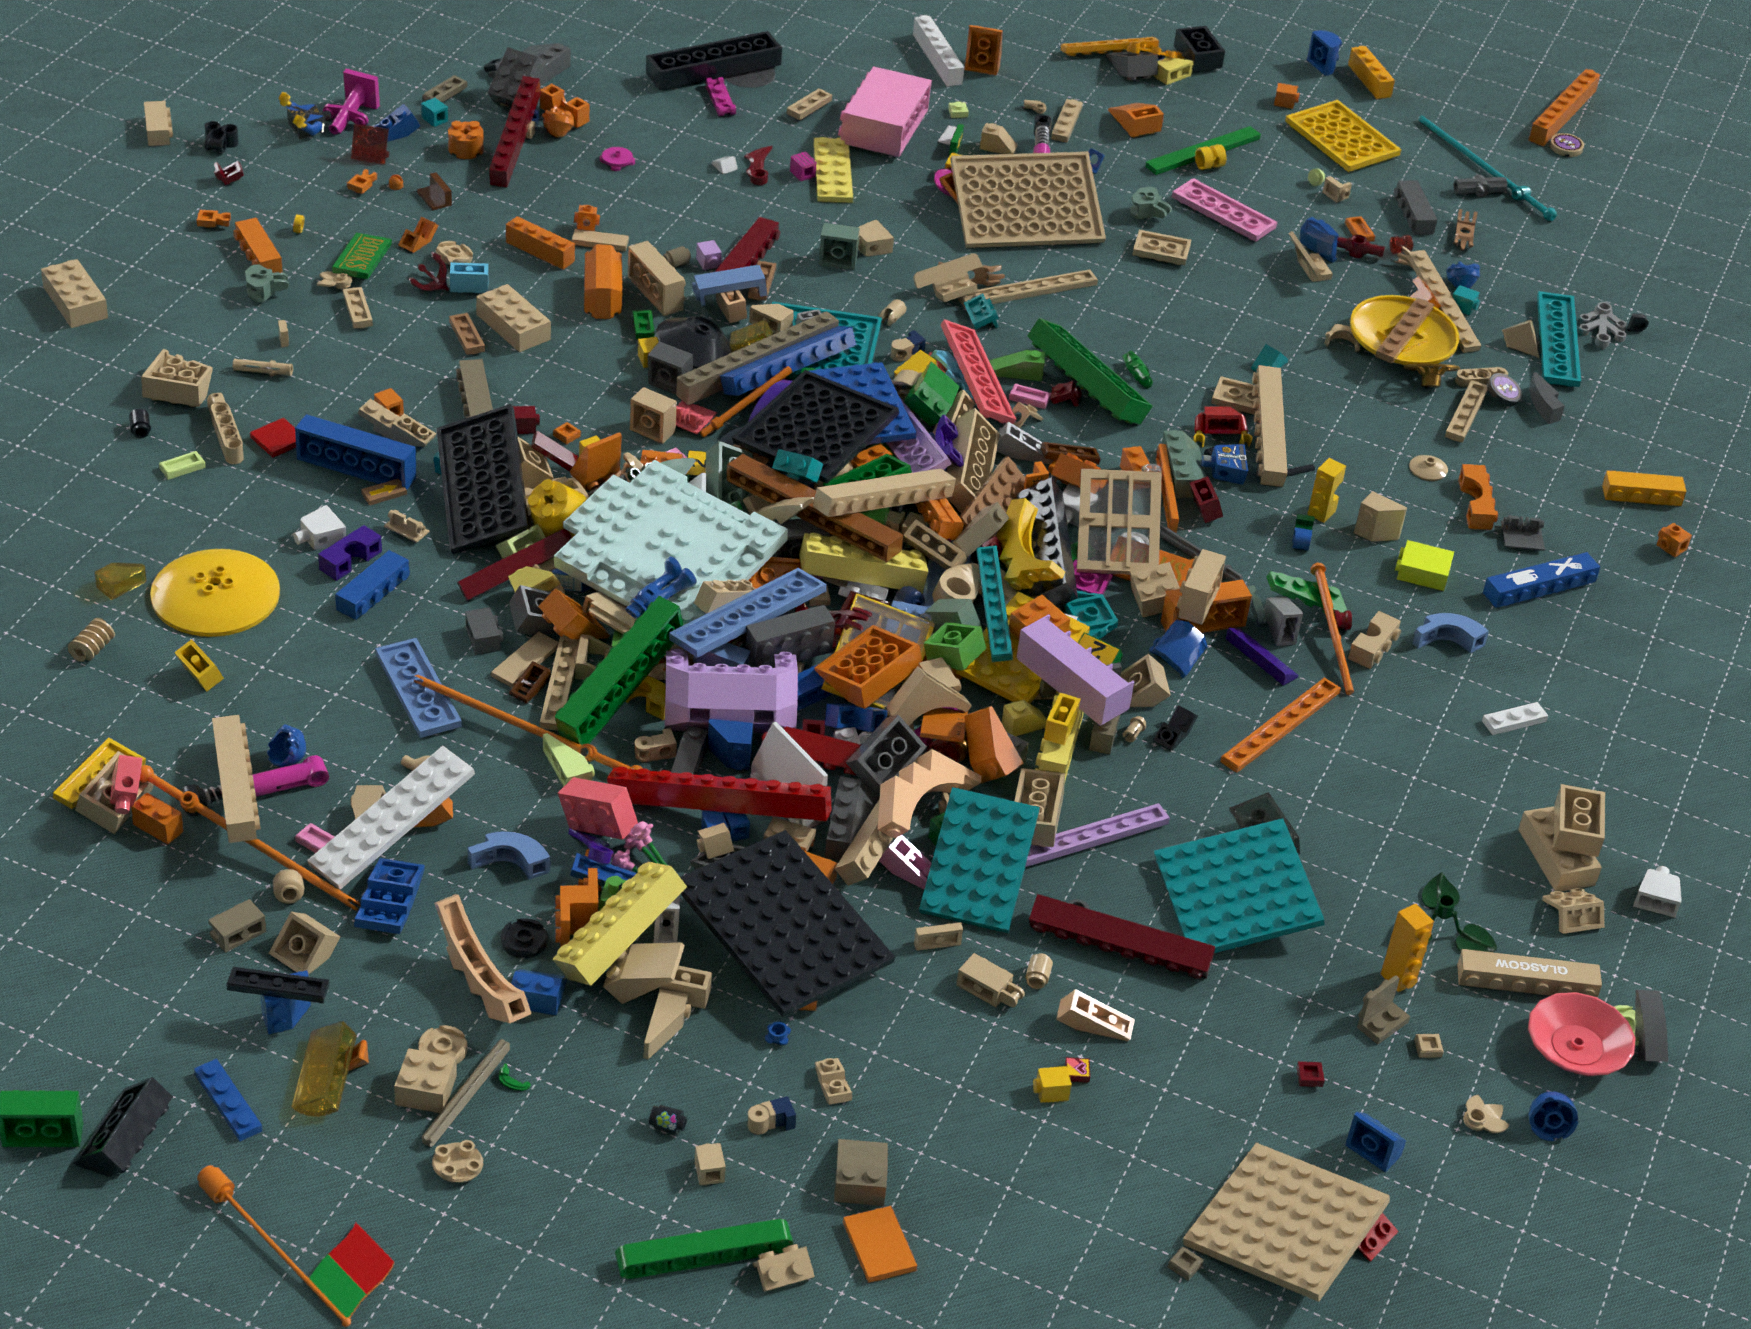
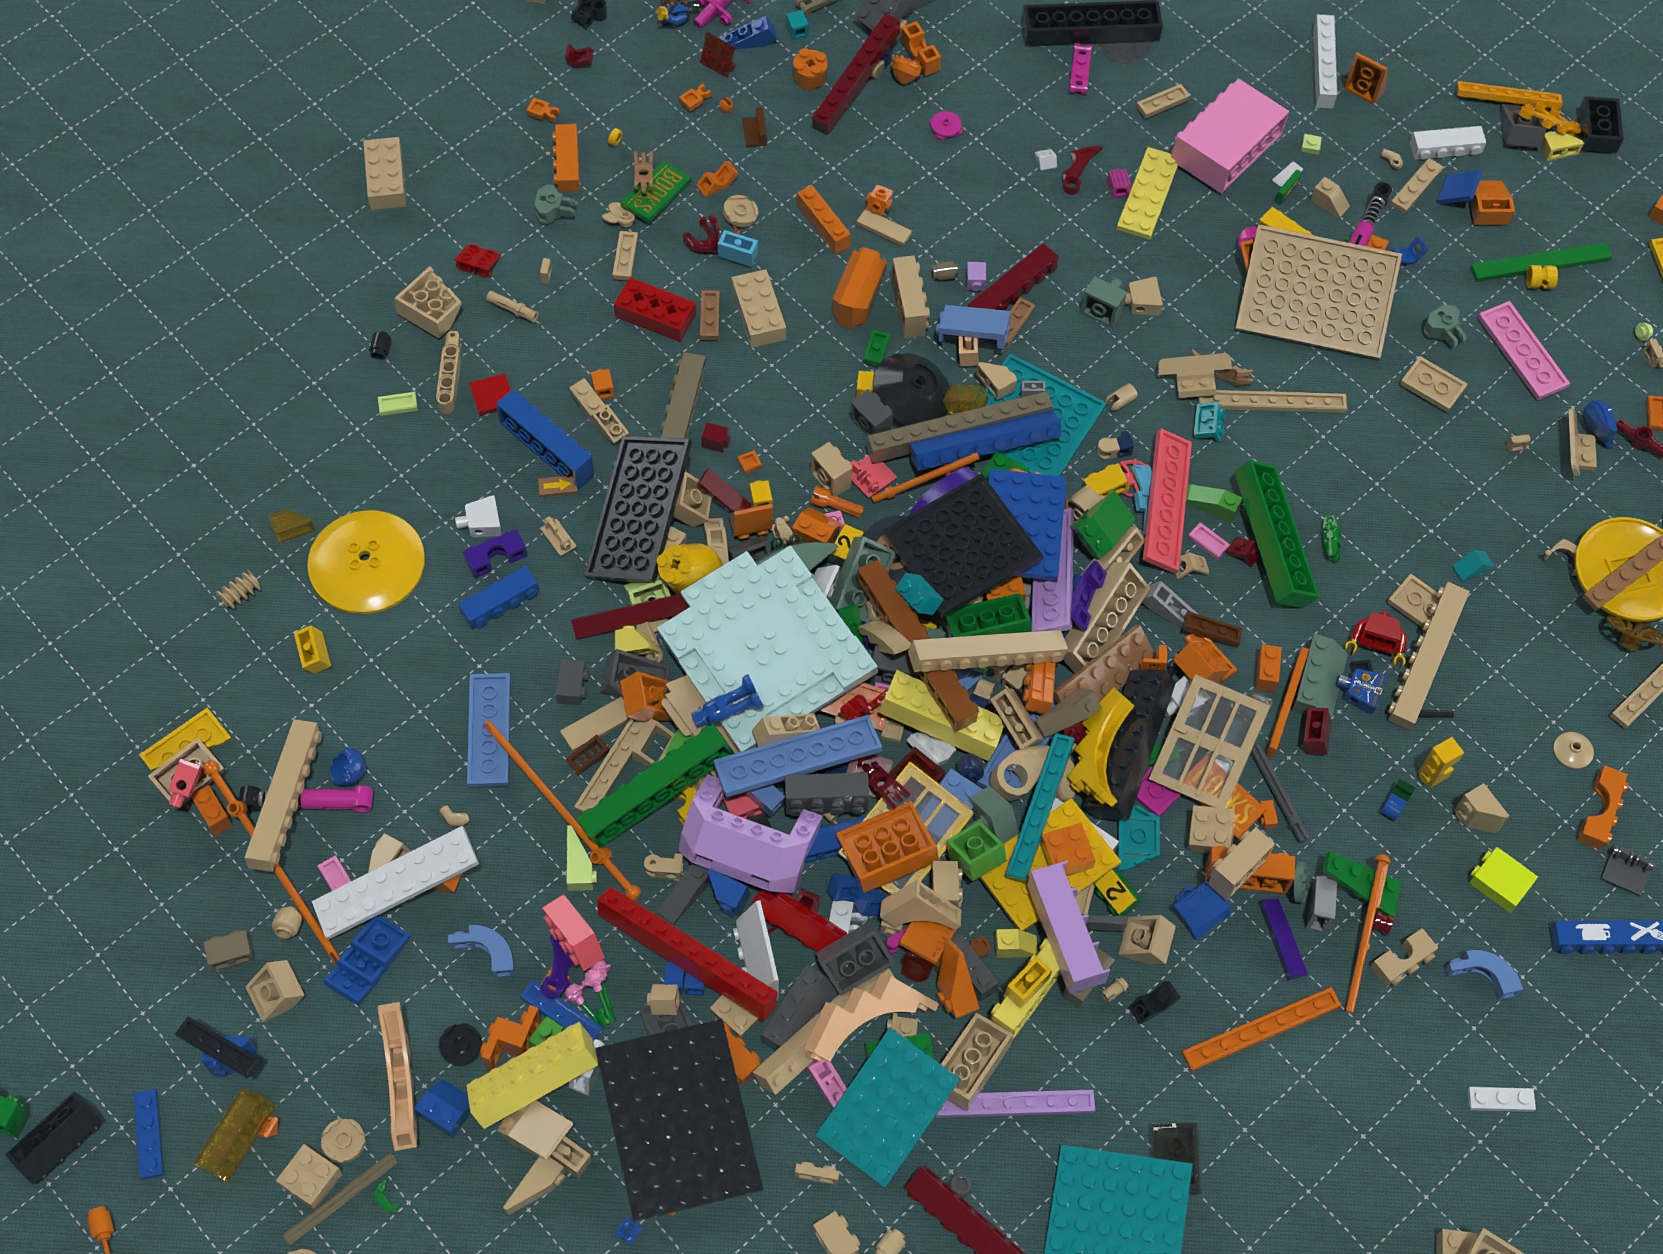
camera: 25 degrees right, 20 degrees up
(215, 338) = (477, 260): none -> red hinge
(343, 247) = (643, 166): none -> medium nougat piece
(411, 339) = (655, 309): none -> red brick
(656, 440) = (825, 498): none -> orange piece
(779, 569) = (859, 706): none -> red hinge
(1076, 85) = (1447, 142): none -> white brick
(1105, 111) = (1459, 187): none -> blue tile
(1257, 270) = (1518, 443): none -> tan tile

